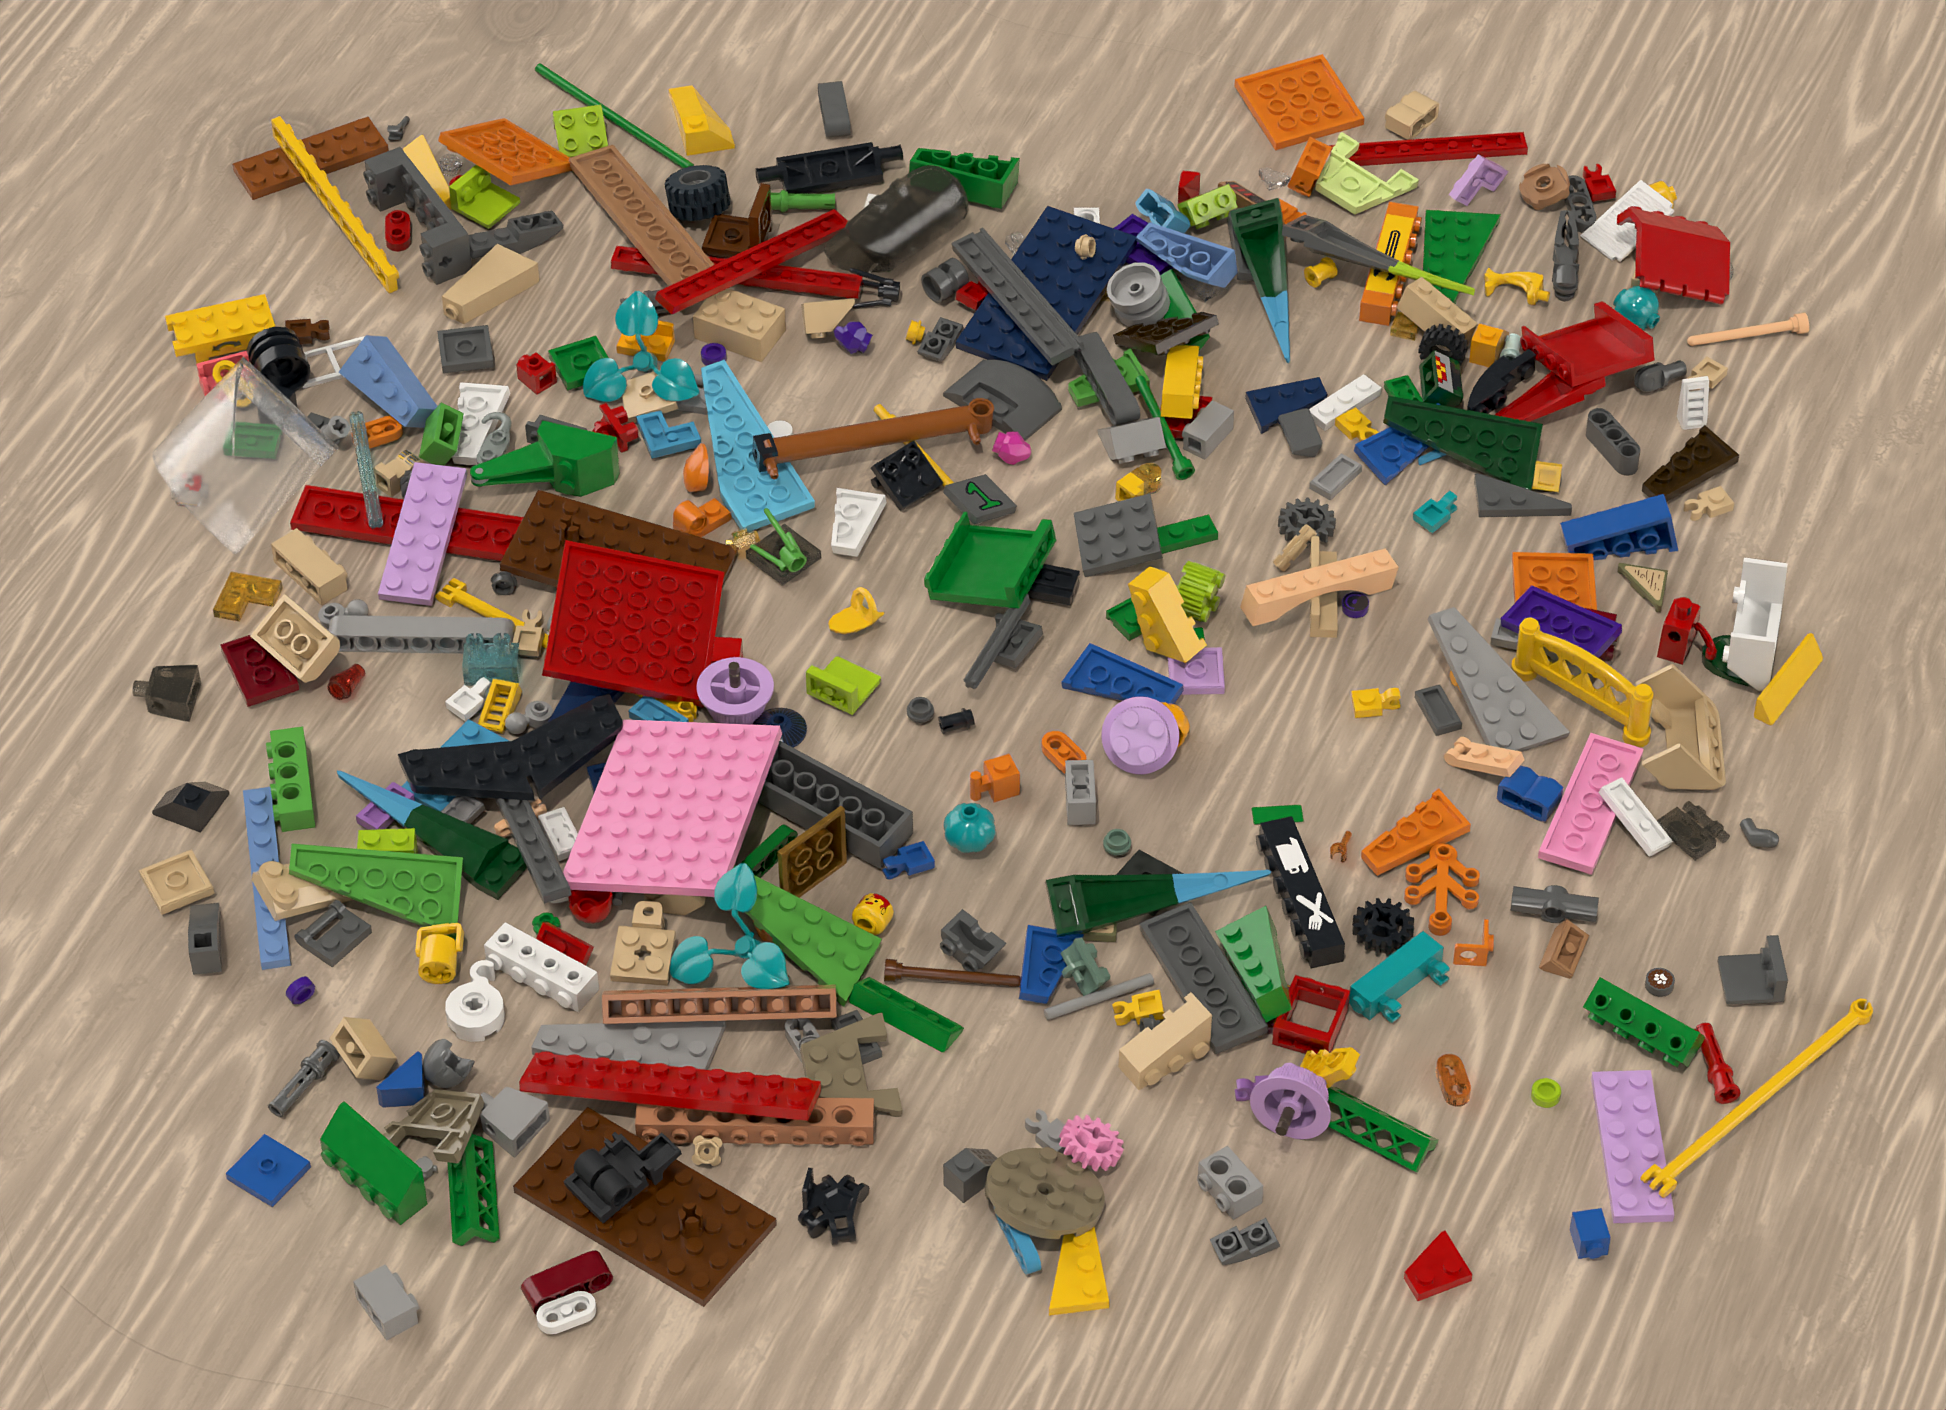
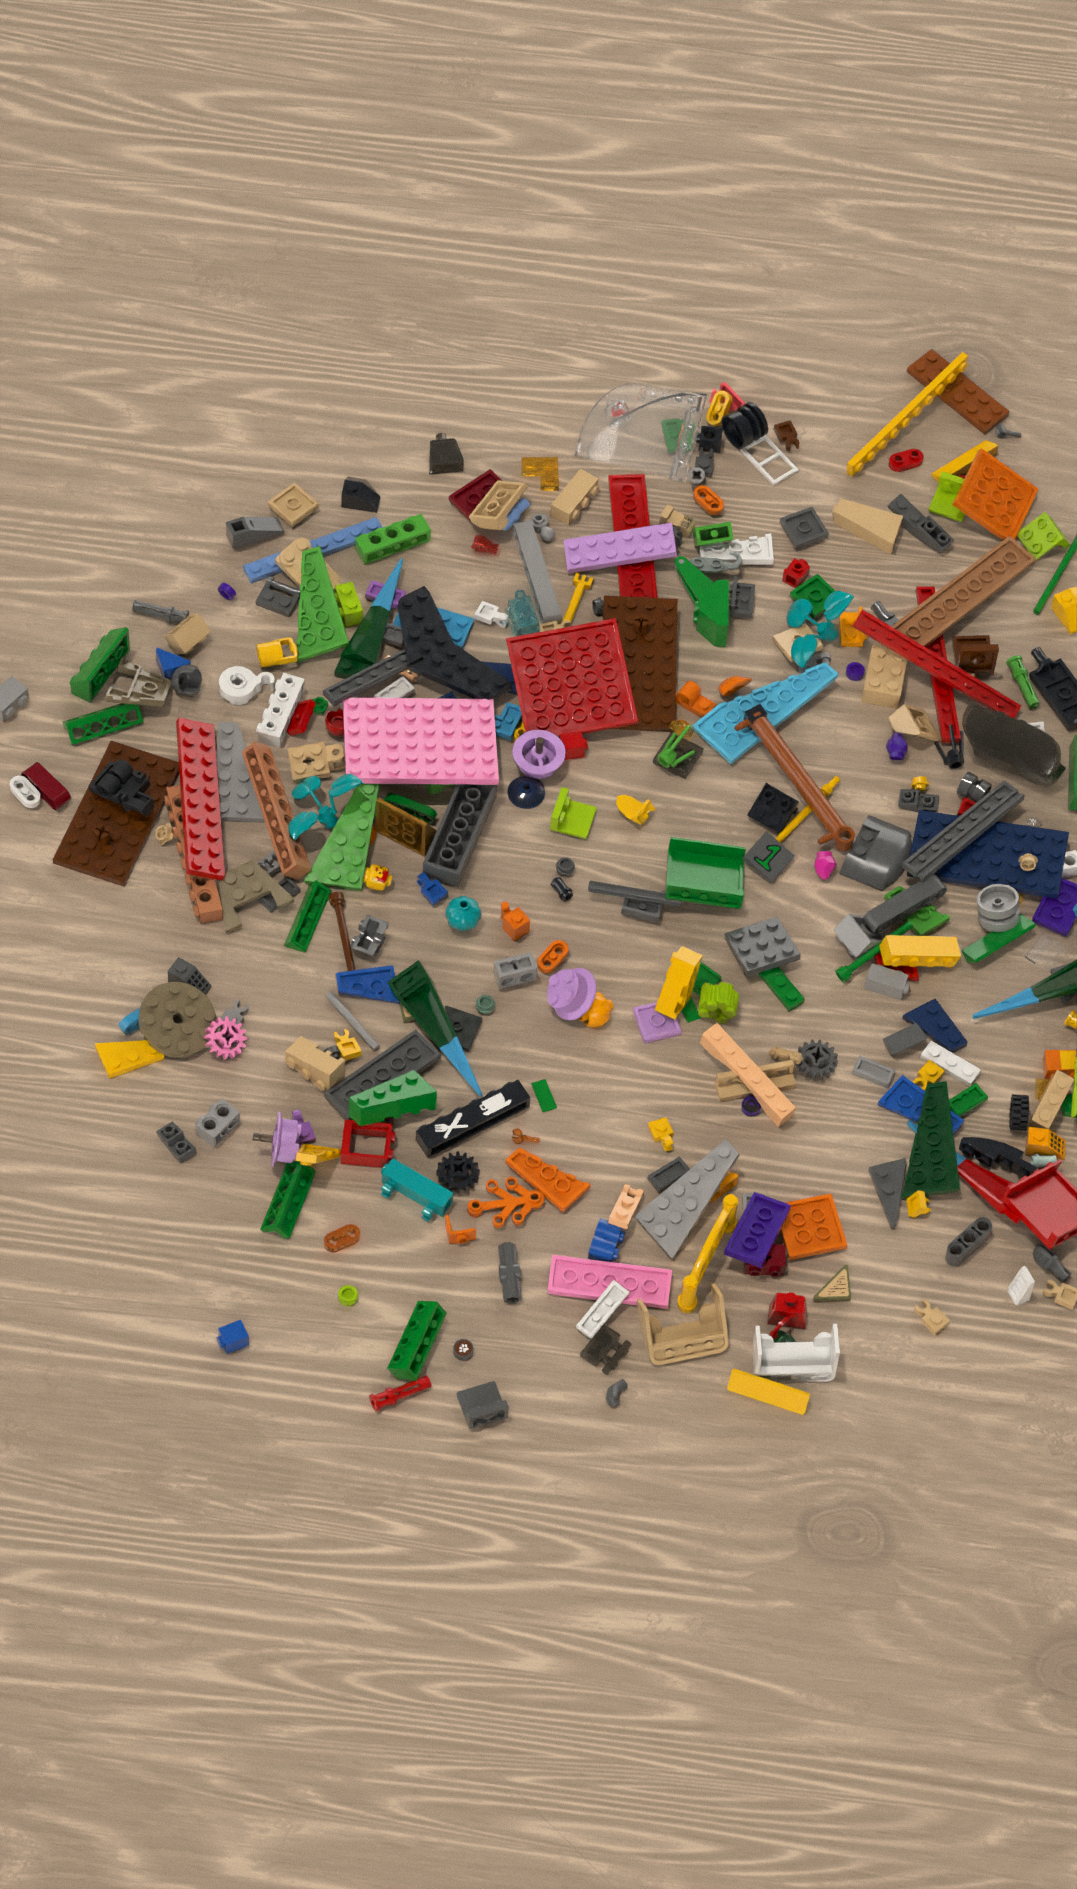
camera: 70 degrees right, 10 degrees up
(211, 325) = (768, 386): yellow piece -> none
(268, 1170) = (90, 615): blue plate -> none
(366, 469) = (662, 502): clear light blue axle -> none
(388, 381) = (747, 492): medium blue wedge -> none
(445, 244) = (942, 443): dark grey plate -> none
(499, 687) = (502, 628): yellow slope -> none
(513, 1118) = (158, 726): light grey torso -> none
(536, 715) = (480, 645): light grey plate -> none
(611, 425) = (757, 628): red hips -> none
(663, 439) = (761, 661): dark azure plate -> none
(697, 192) = (1000, 618): black wheel -> none
(780, 428) = (793, 727): white tile -> none
(834, 1201) = (140, 907): black piece -> none
(854, 519) = (731, 789): white wing -> none
(1055, 584) = (705, 918): black plate -> none
(1082, 966) = (373, 998): sand green hips -> none
(1117, 678) = (630, 974): blue wing -> none
(1139, 482) = (818, 950): leg -> none
(1166, 334) = (963, 930): dark brown plate -> none
(1191, 255) = (1046, 935): medium blue wedge -> none
(1435, 514) = (854, 1138): teal plate -> none
(1437, 1269) = (186, 1255): red wing -> none
(1441, 380) = (985, 1118): dark green brick -> none
(1564, 950) = (474, 1288): medium nougat slope -> none
(1622, 530) = (874, 1259): blue wedge -> none
(1630, 1144) = (317, 1353): lavender plate -> none
(1666, 1175) = (373, 1420): yellow hinge -> none
(1695, 463) = (968, 1301): dark brown wing -> none

